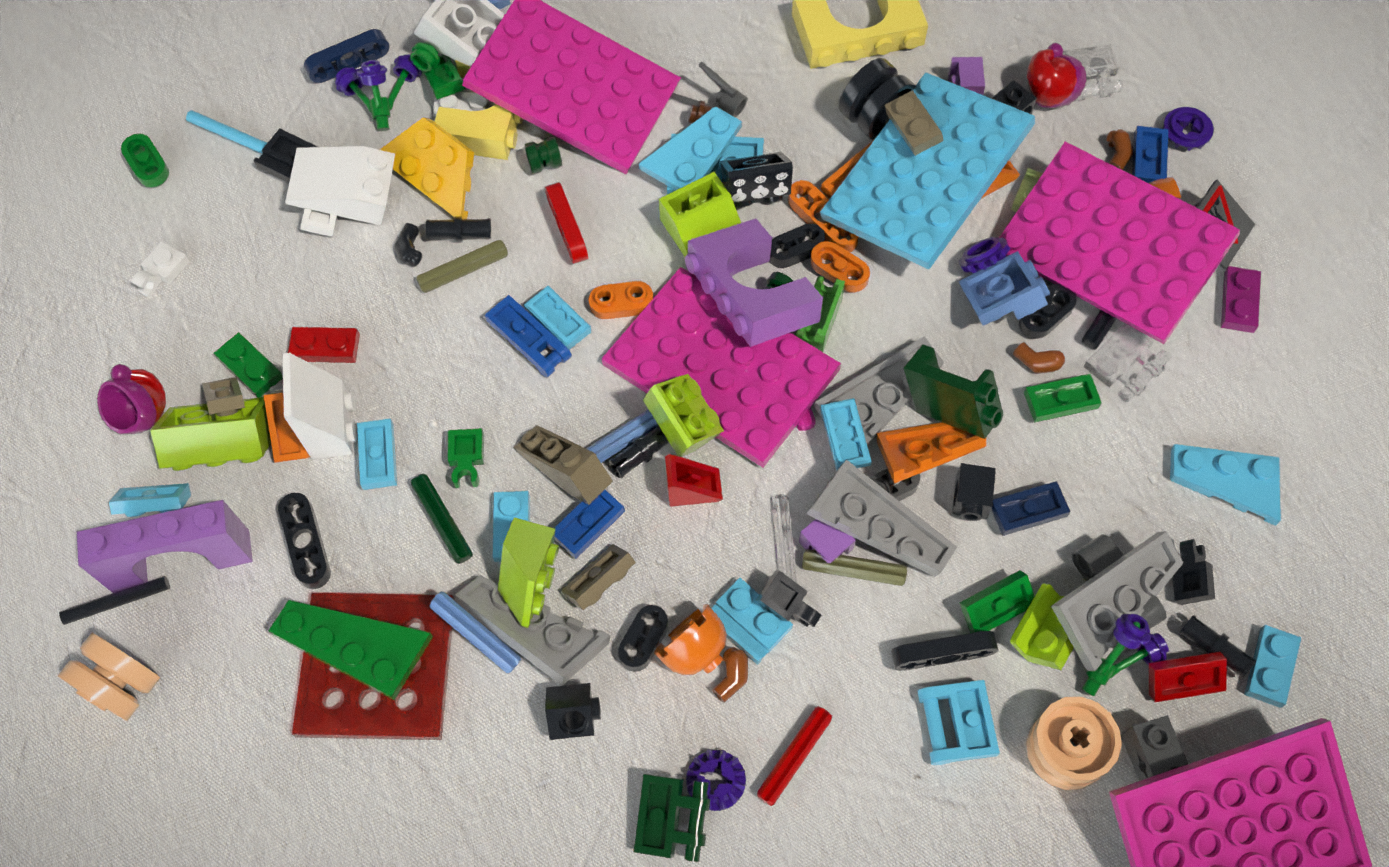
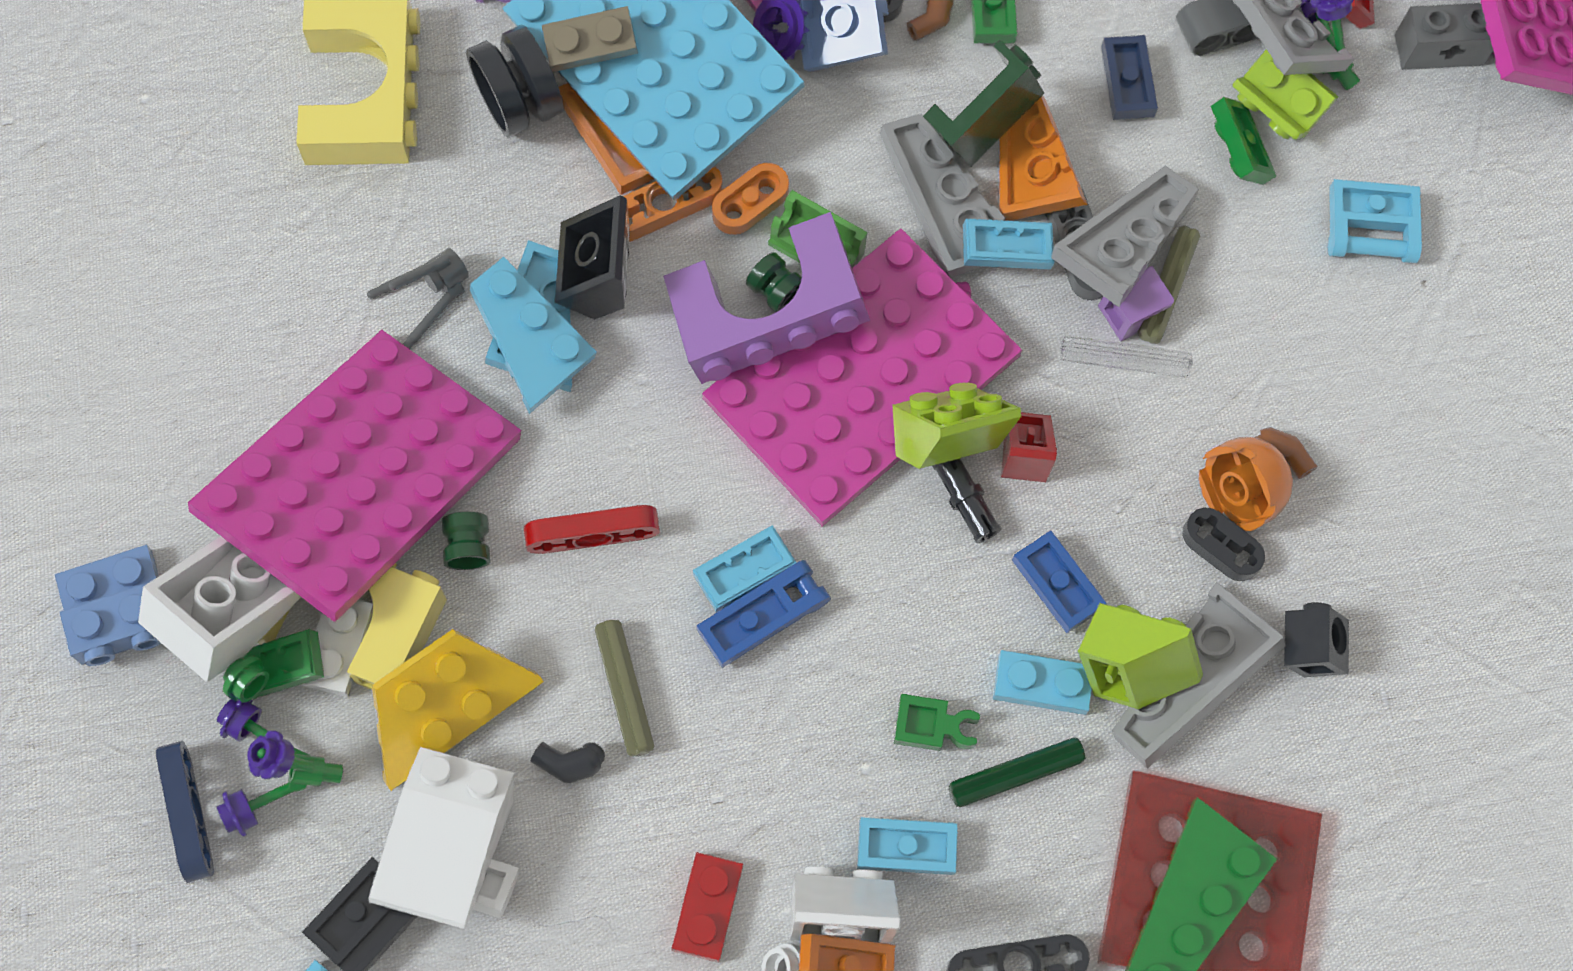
camera: 85 degrees left, 5 degrees up
(458, 228) = (561, 682): black pin -> none
(475, 632) = (1193, 746): medium blue axle -> none
(565, 463) = (972, 596): dark tan slope -> none
(598, 576) = (1138, 577): dark tan plate -> none
(621, 300) = (730, 479): orange plate -> none
(623, 436) = (943, 520): medium blue axle -> none
(659, 817) = (1451, 562): dark green plate -> none
(697, 210) = (638, 347): lime slope -> none
(698, 111) = (459, 316): reddish brown plate -> none
(726, 794) = (1390, 501): dark purple gear -> none
(748, 622) = (1215, 415): medium azure plate -> none
(785, 598) = (1211, 363): black plate -> none
(794, 756) = (1391, 403): red axle -> none
(795, 244) = (710, 242): black beam -> none
(944, 650) = (1291, 212): black beam -> none
(973, 492) = (1101, 128): black brick -> none
(1090, 729) = (1420, 110): light nougat wheel -> none

